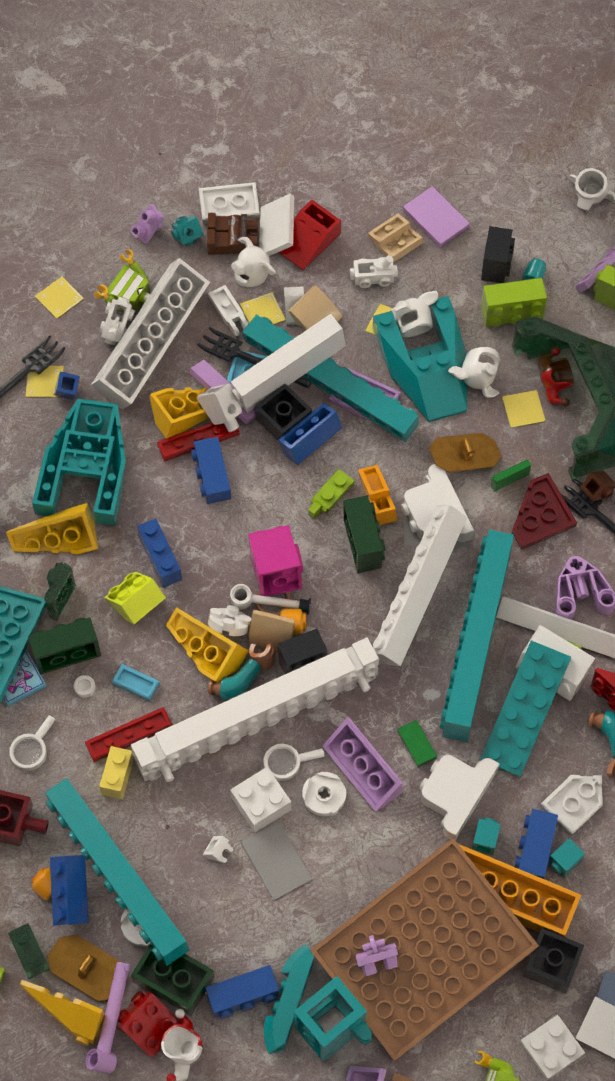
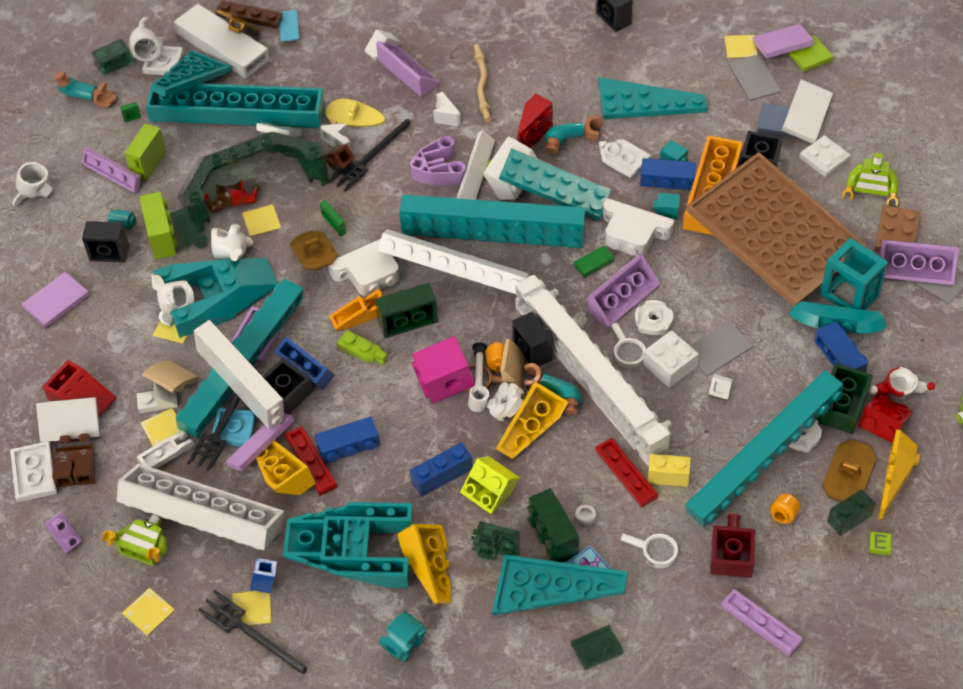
camera: 95 degrees left, 10 degrees down
(69, 890) = (791, 482): blue brick -> none
(102, 1058) = (888, 434): lavender piece -> none
(115, 325) = (184, 542): white brick -> none
(135, 682) = (574, 474): medium azure tile -> none
(186, 230) = (70, 497): teal brick -> none
(221, 406) = (282, 431): white torso -> none
(253, 263) = (115, 431): white piece -> none
(374, 271) = (120, 336): white brick -> none
(385, 953) = (794, 252): lavender hips -> none
(395, 237) = (79, 328): tan slope -> none
(505, 330) = (186, 229): none -> clear green hinge
(542, 513) = (366, 195): dark red plate -> none

